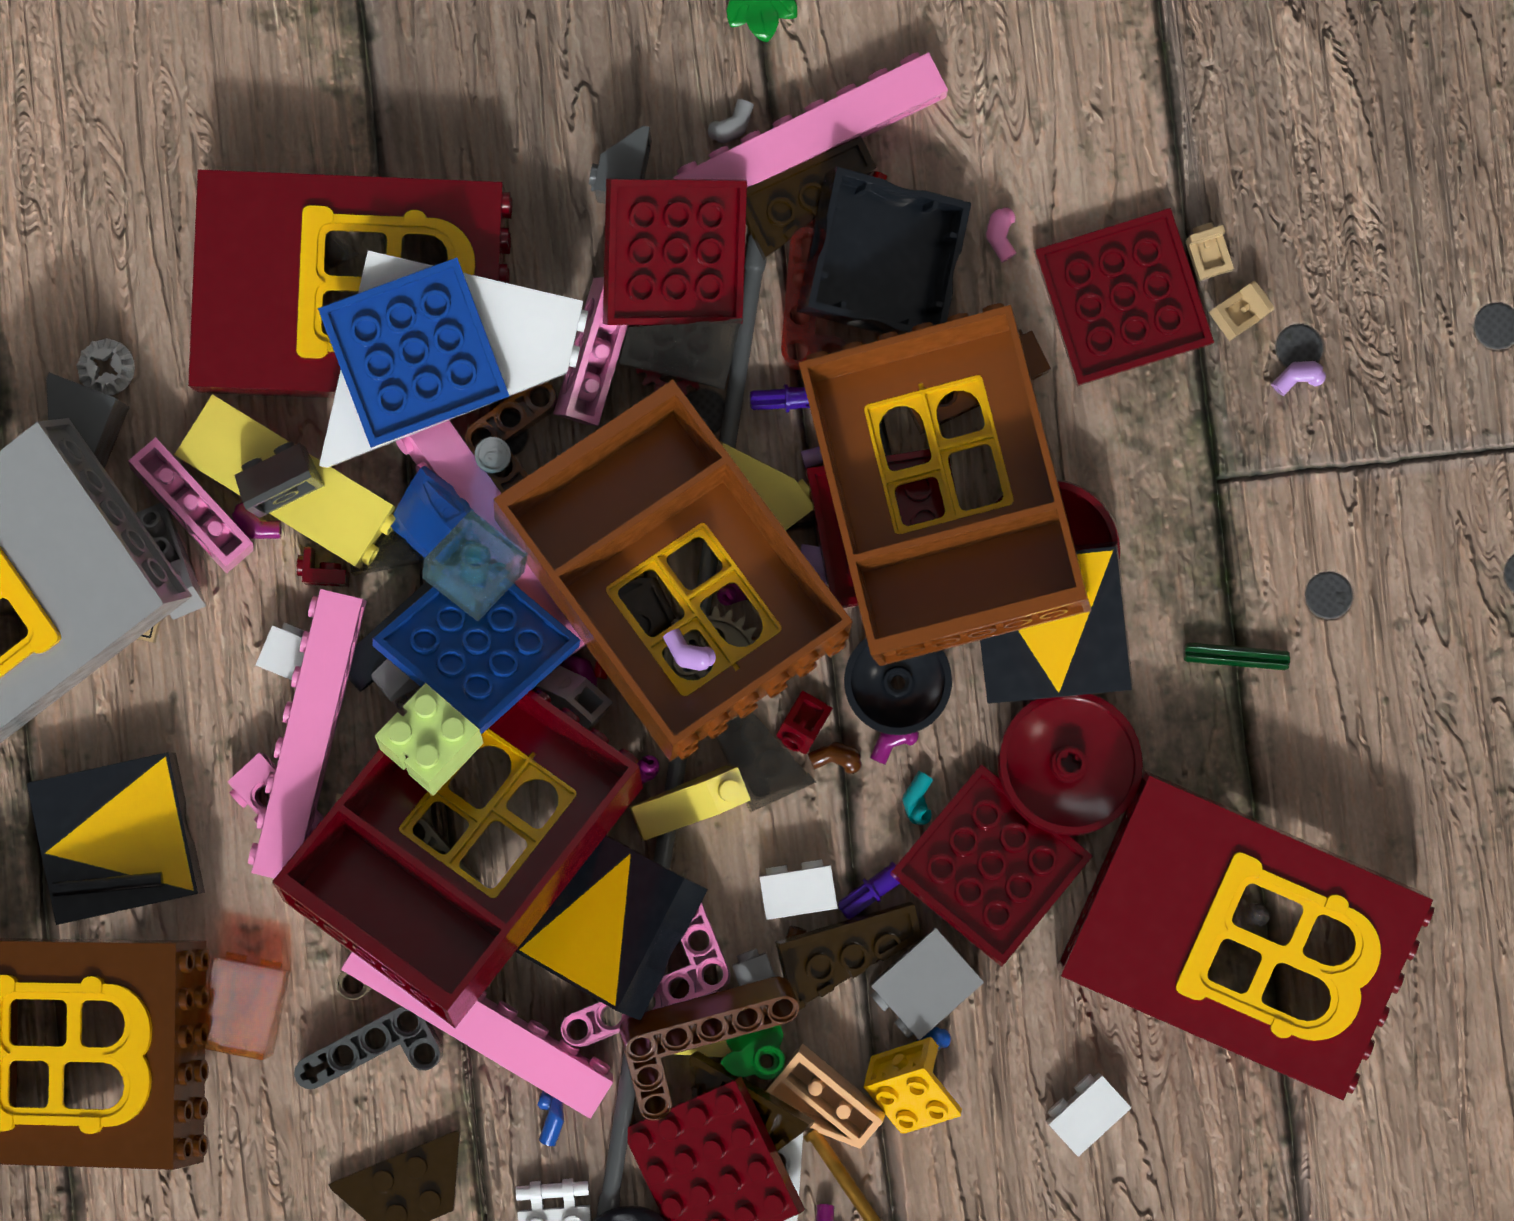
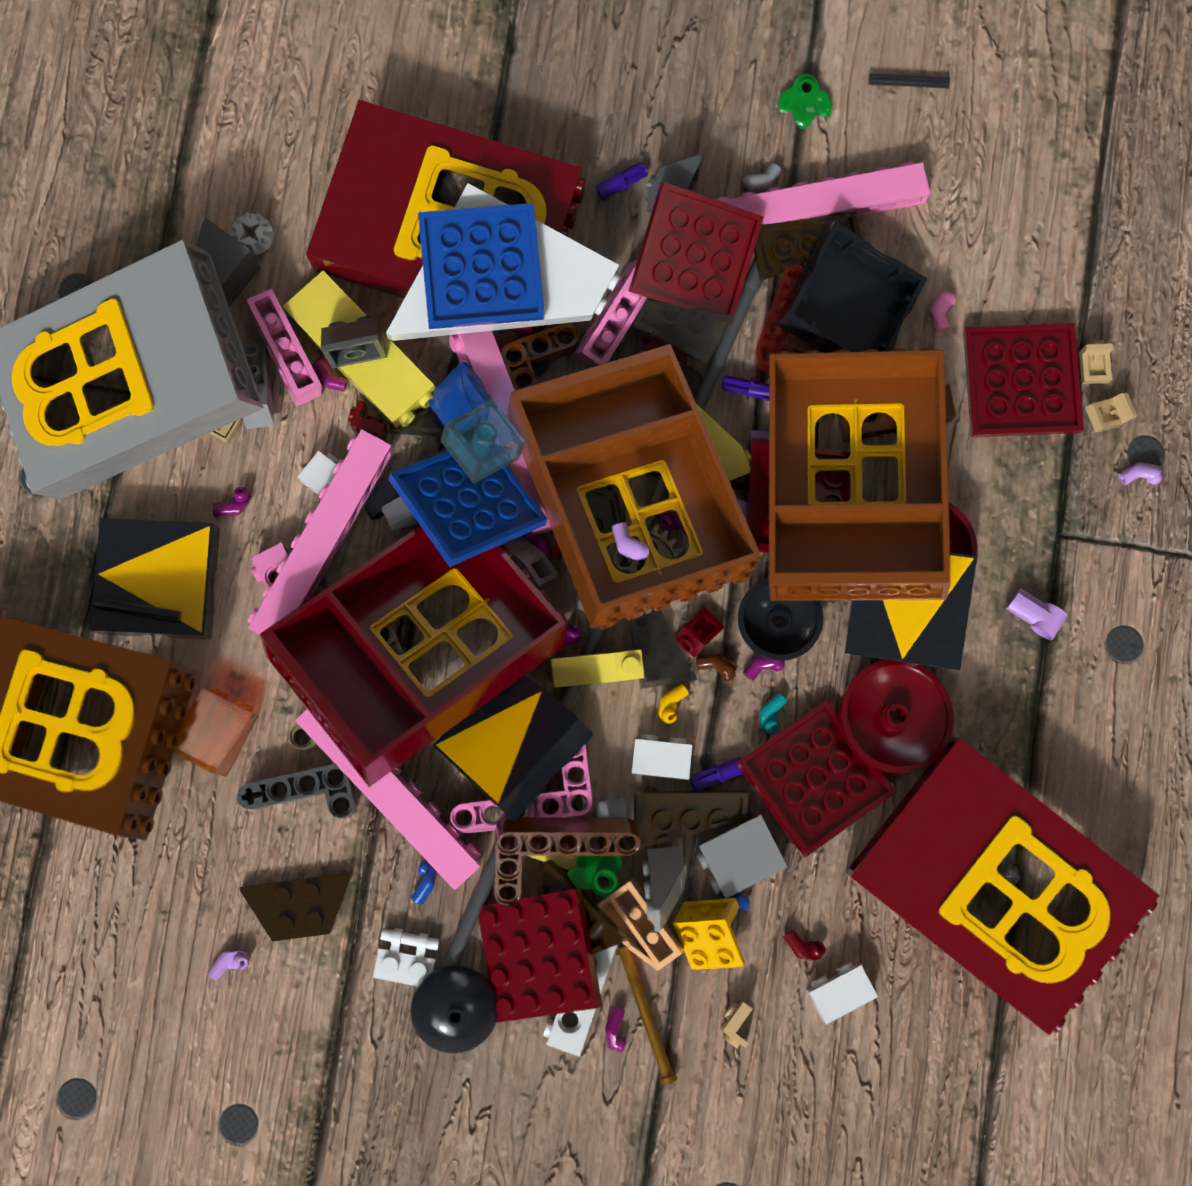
camera: 15 degrees right, 5 degrees down
(187, 718) = (235, 506): none -> magenta arm
(431, 736) = (414, 557): yellowish green piece -> none
(492, 455) = (519, 368): light grey piece -> none
(555, 172) = (621, 180): none -> dark purple axle
(789, 821) = (668, 703): none -> yellow arm
(843, 1042) = (665, 883): none -> light grey slope
(968, 1176) = (735, 1017): none -> tan bracket
(1031, 1073) = (804, 949): none -> dark red arm
(1221, 590) = (1043, 617): none -> lavender piece
(1236, 656) = (1043, 670): dark green axle -> none

